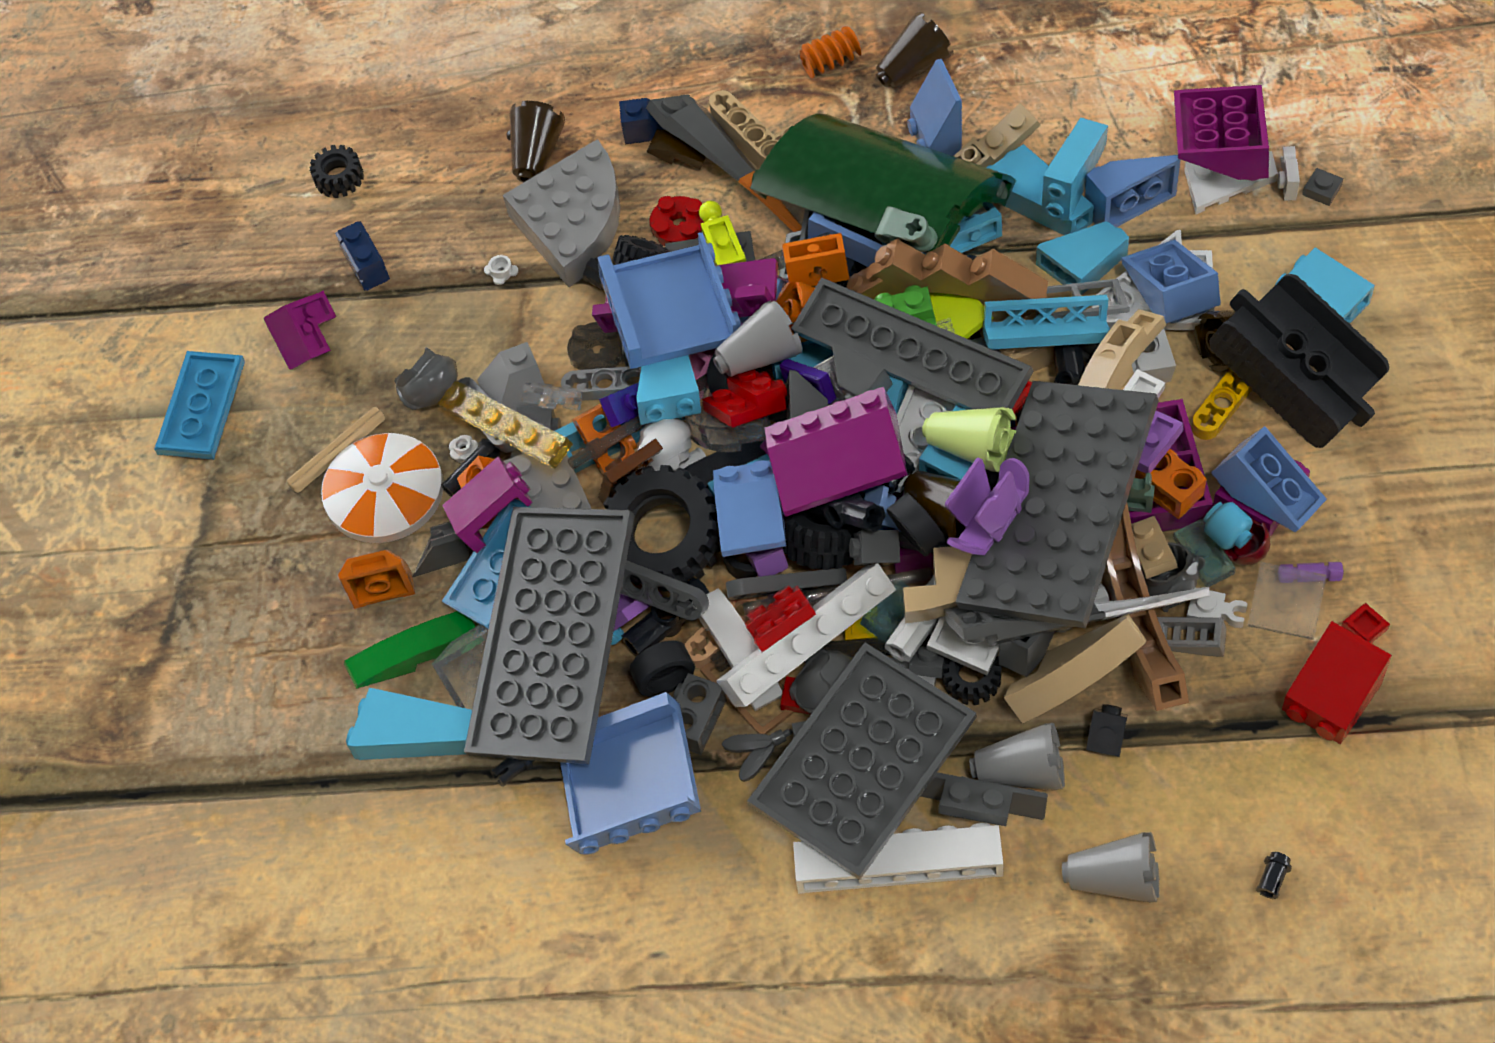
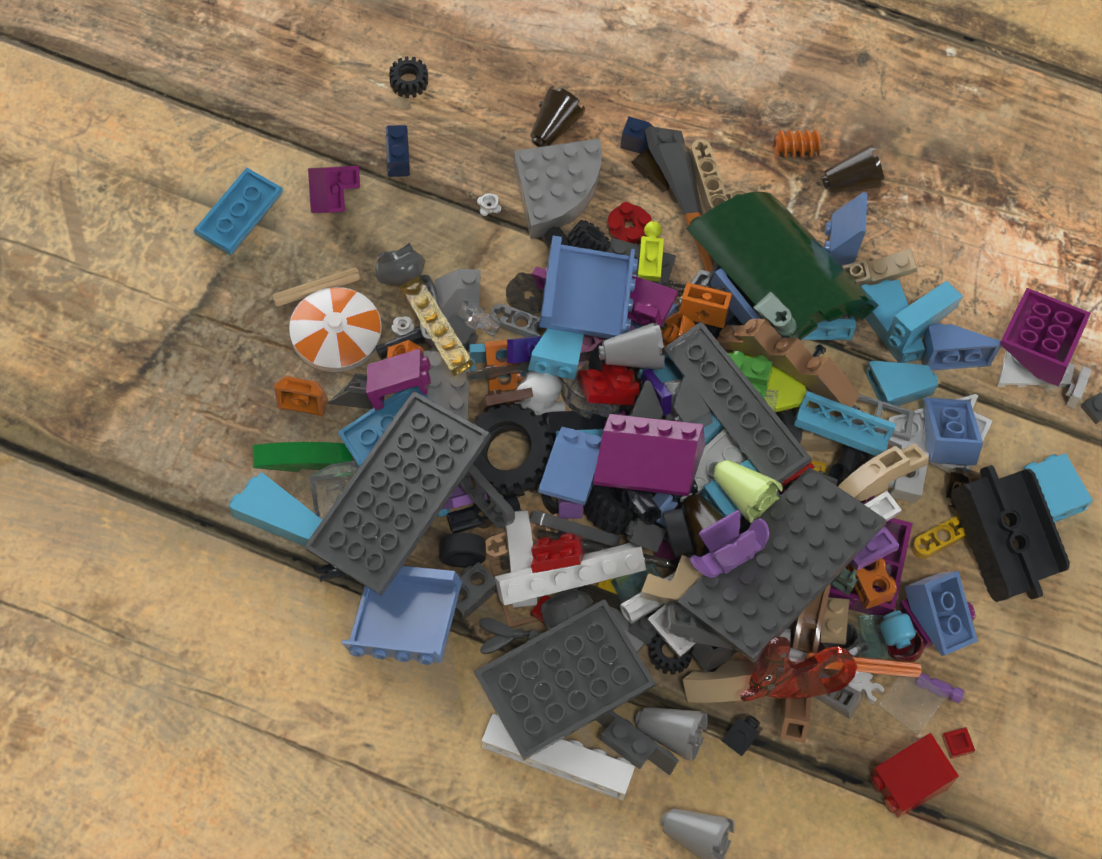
camera: 10 degrees right, 5 degrees up
(1124, 636) = (779, 678): none -> clear red animal
(1210, 580) = (879, 666): none -> orange axle

